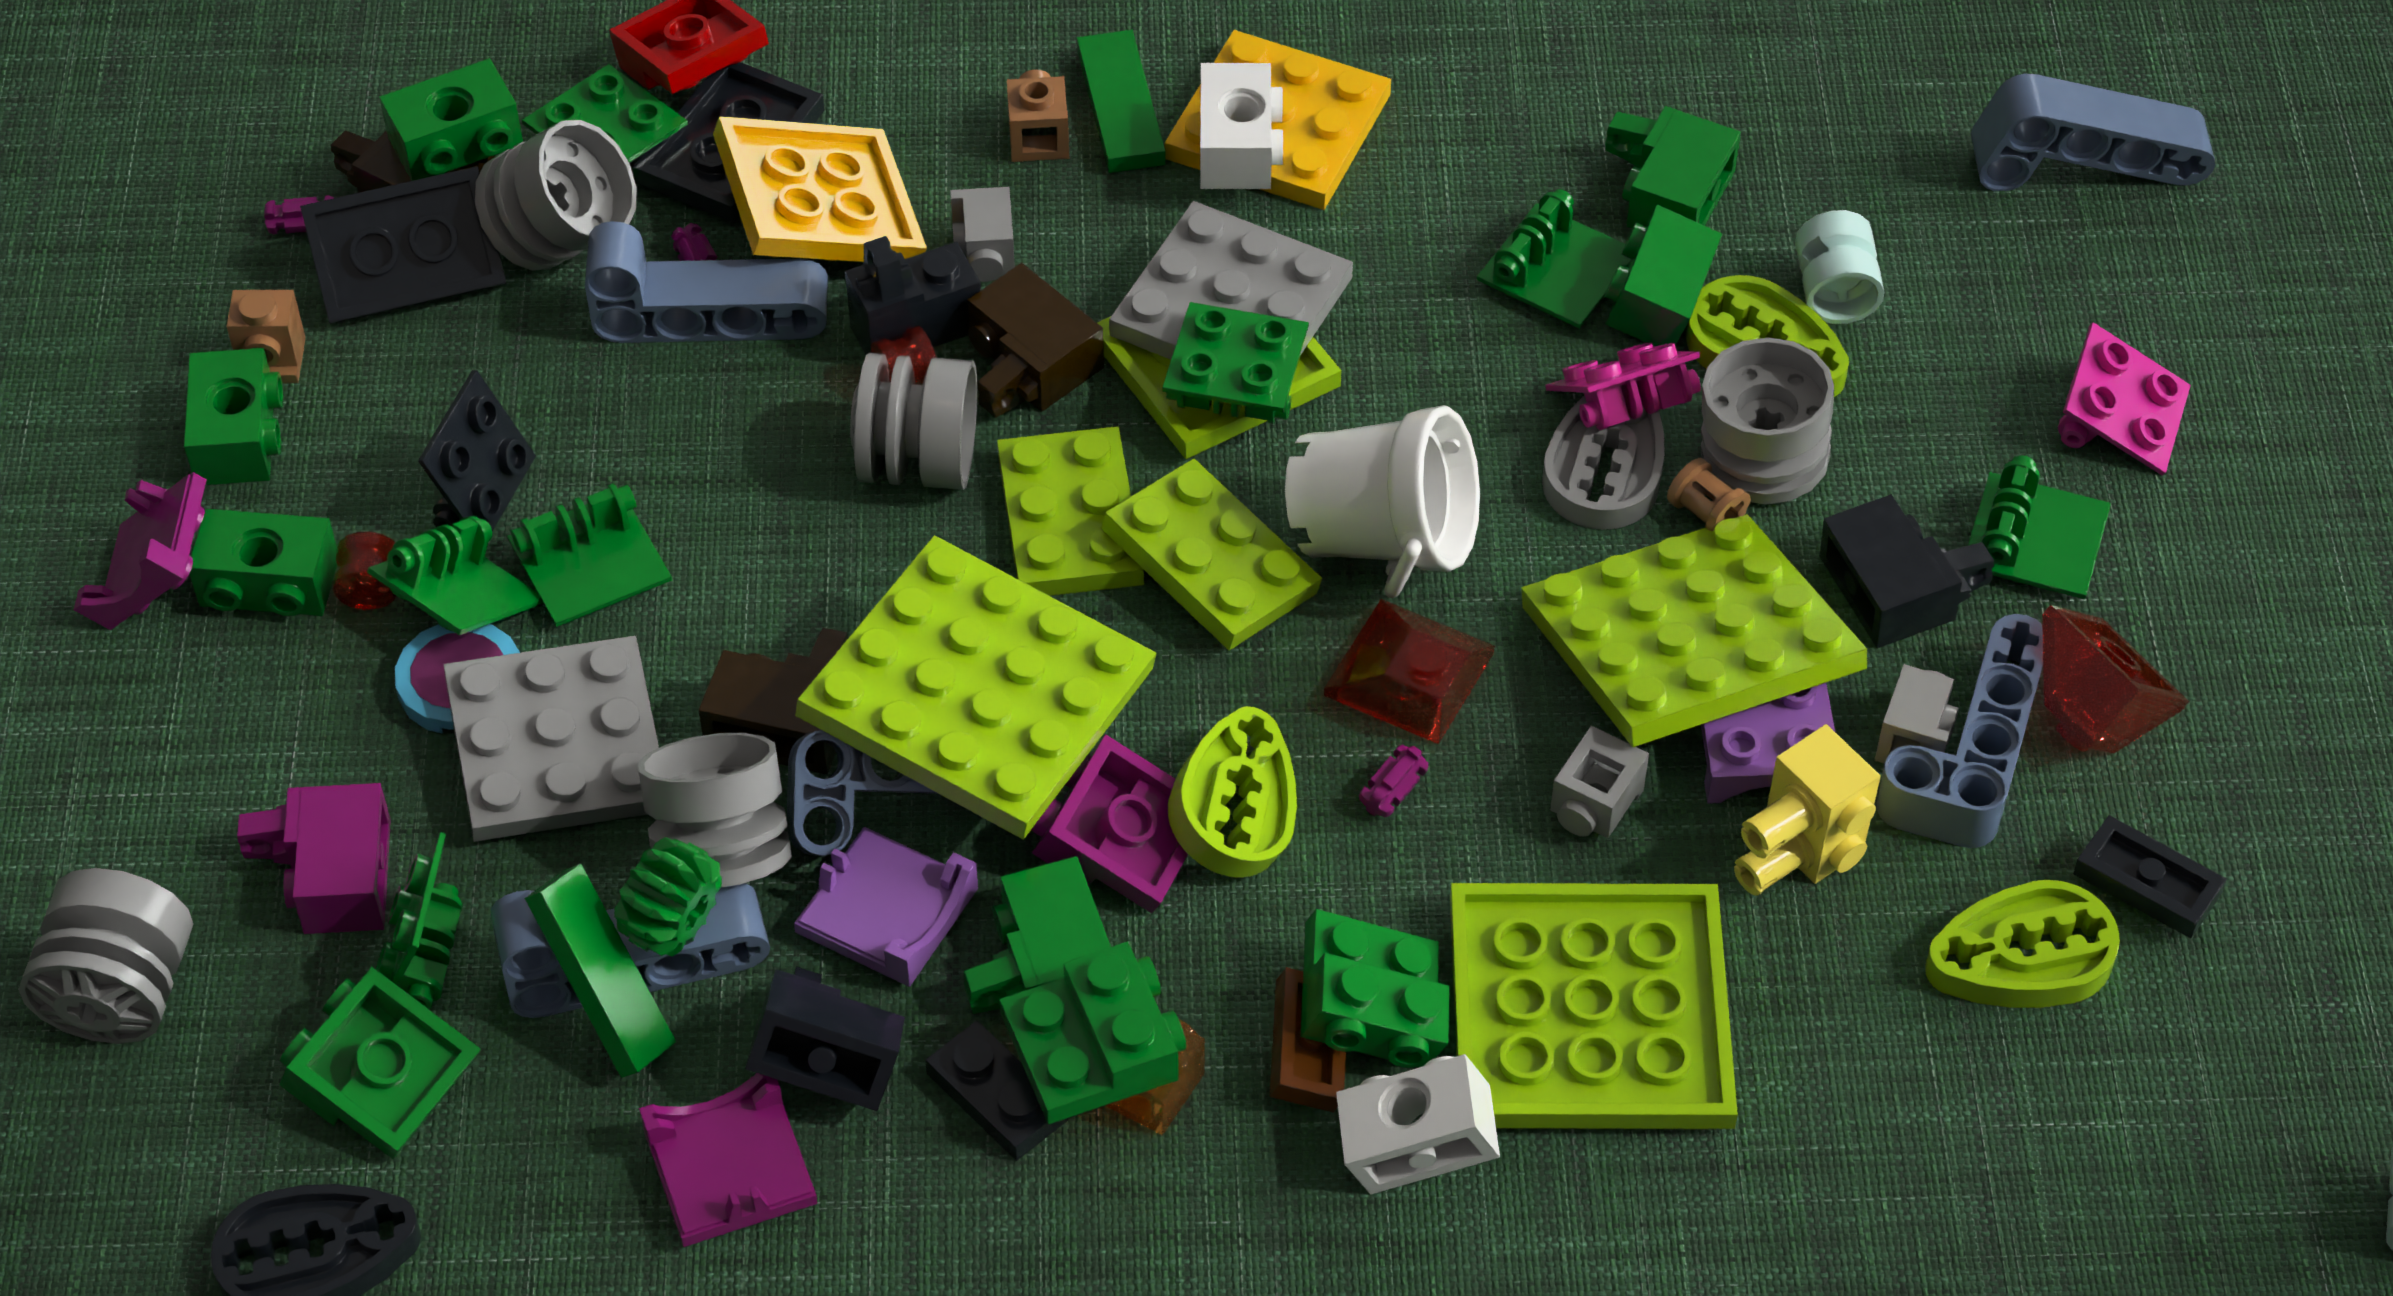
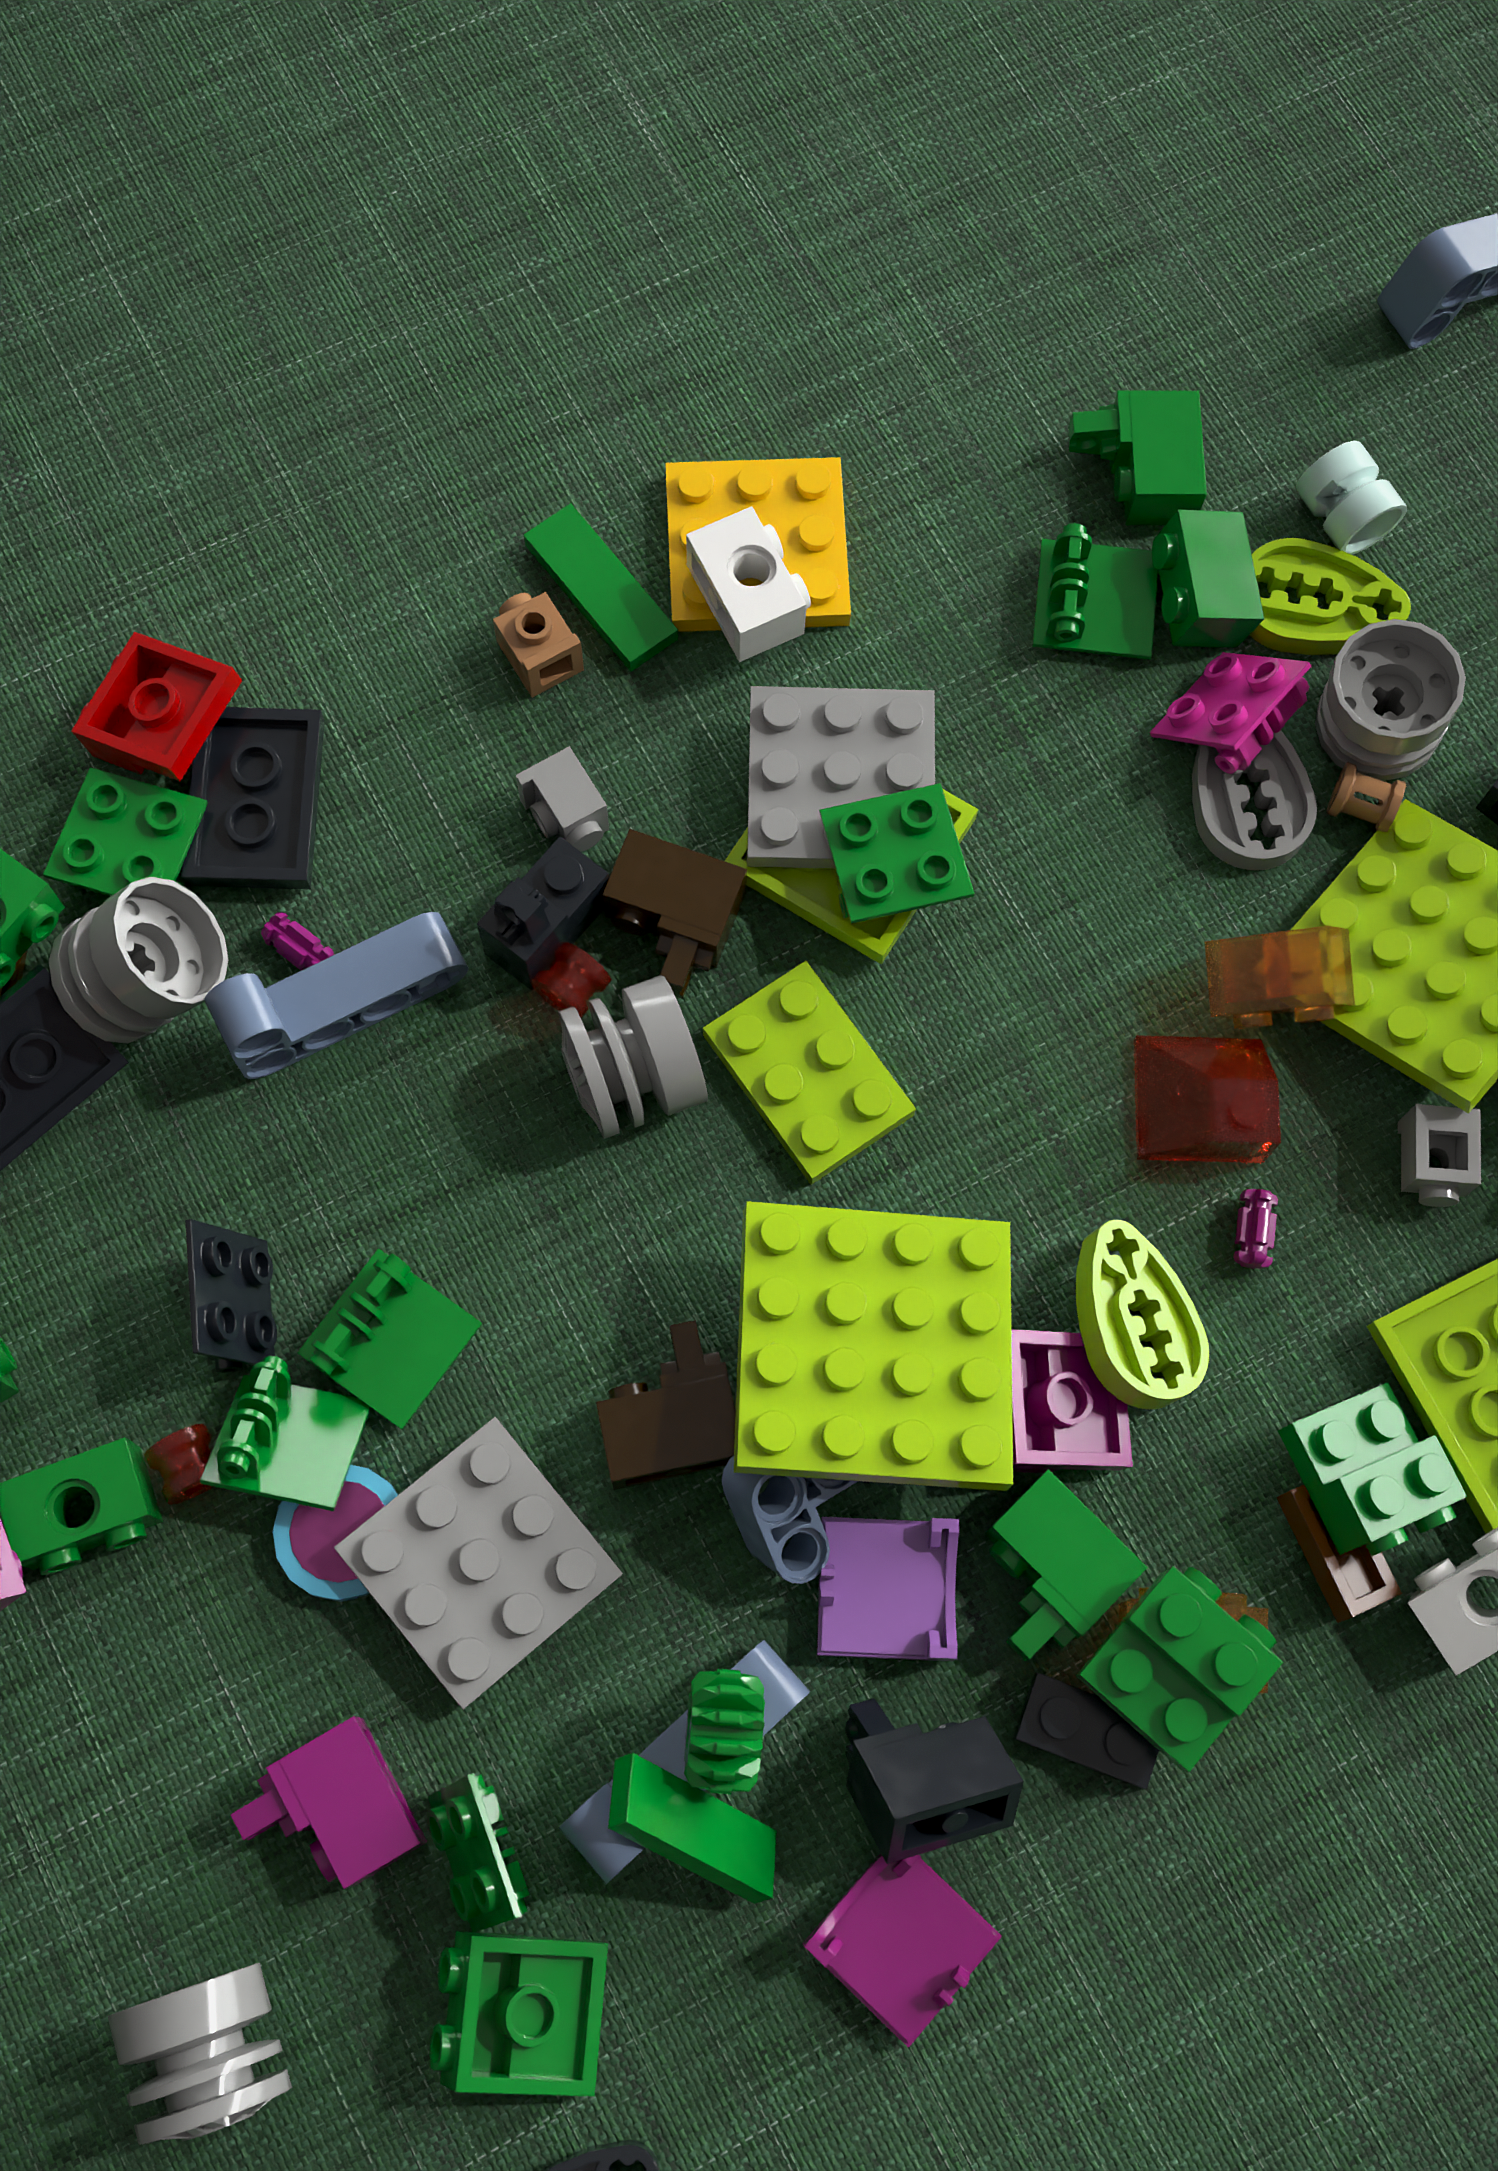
camera: 30 degrees left, 20 degrees up
(721, 799) = (698, 1592): light grey wheel -> none
(816, 189) = (385, 831): yellow plate -> none
(1211, 553) = (970, 1065): lime plate -> none
(1389, 493) = (1115, 946): white piece -> none
(1526, 579) = (1280, 973): none -> clear orange brick

